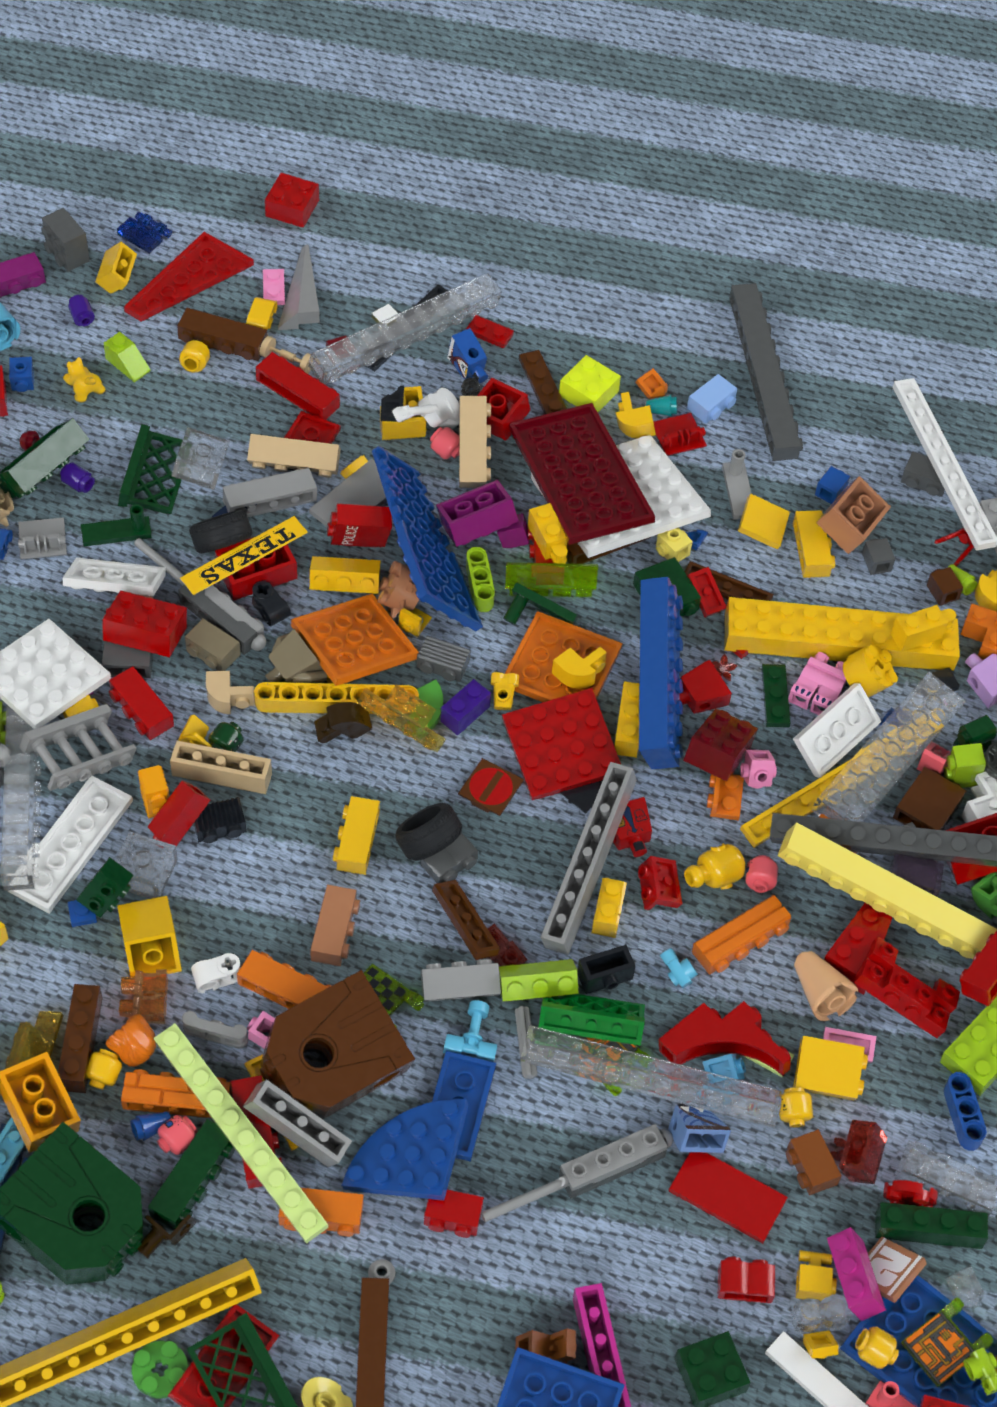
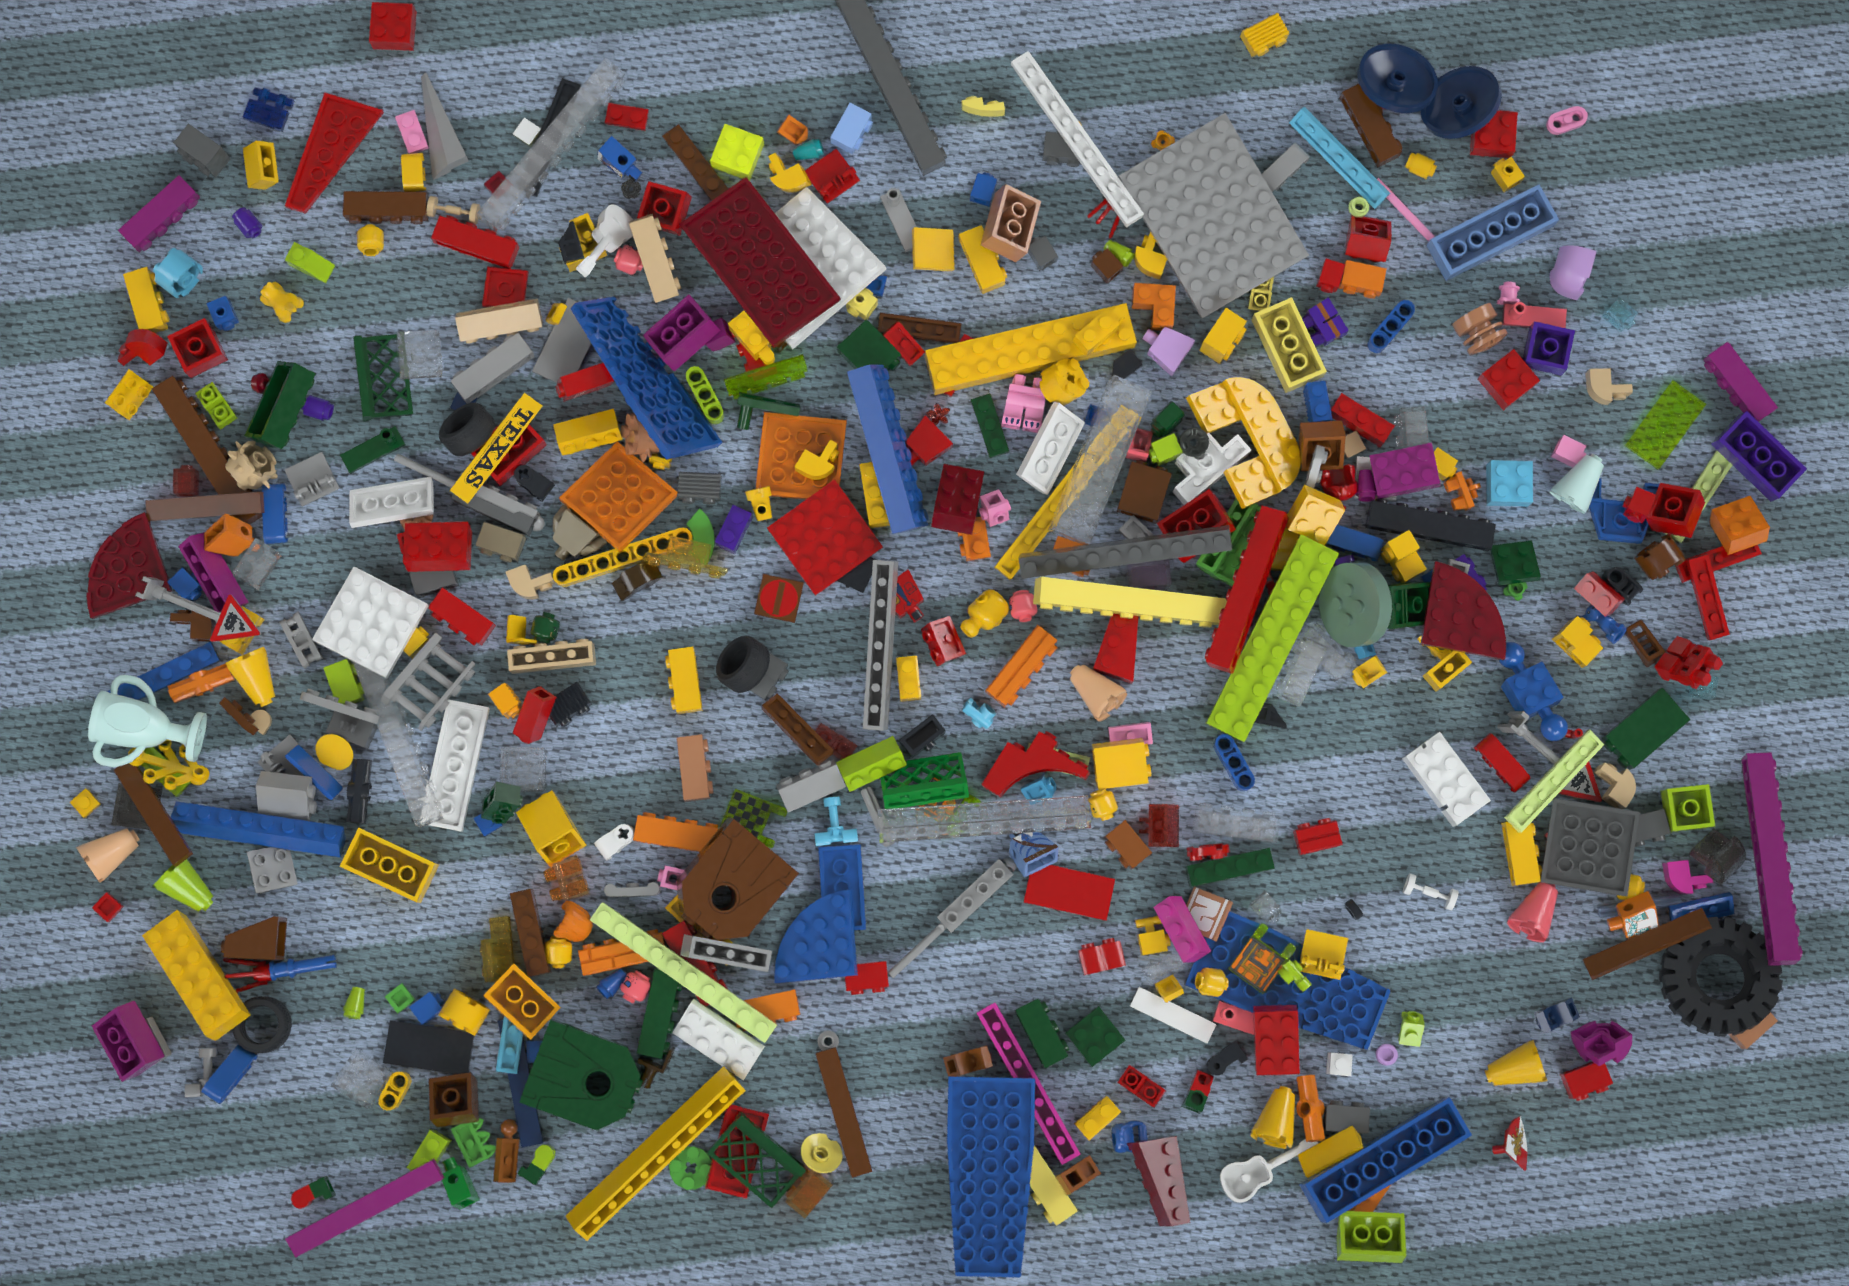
camera: 15 degrees left, 25 degrees up
(251, 1225) = (718, 1039): none -> white plate
(648, 1340) = (1042, 1032): none -> dark green brick
(846, 417) = (975, 106): none -> light yellow slope
(904, 992) = (1162, 679): red bracket -> none

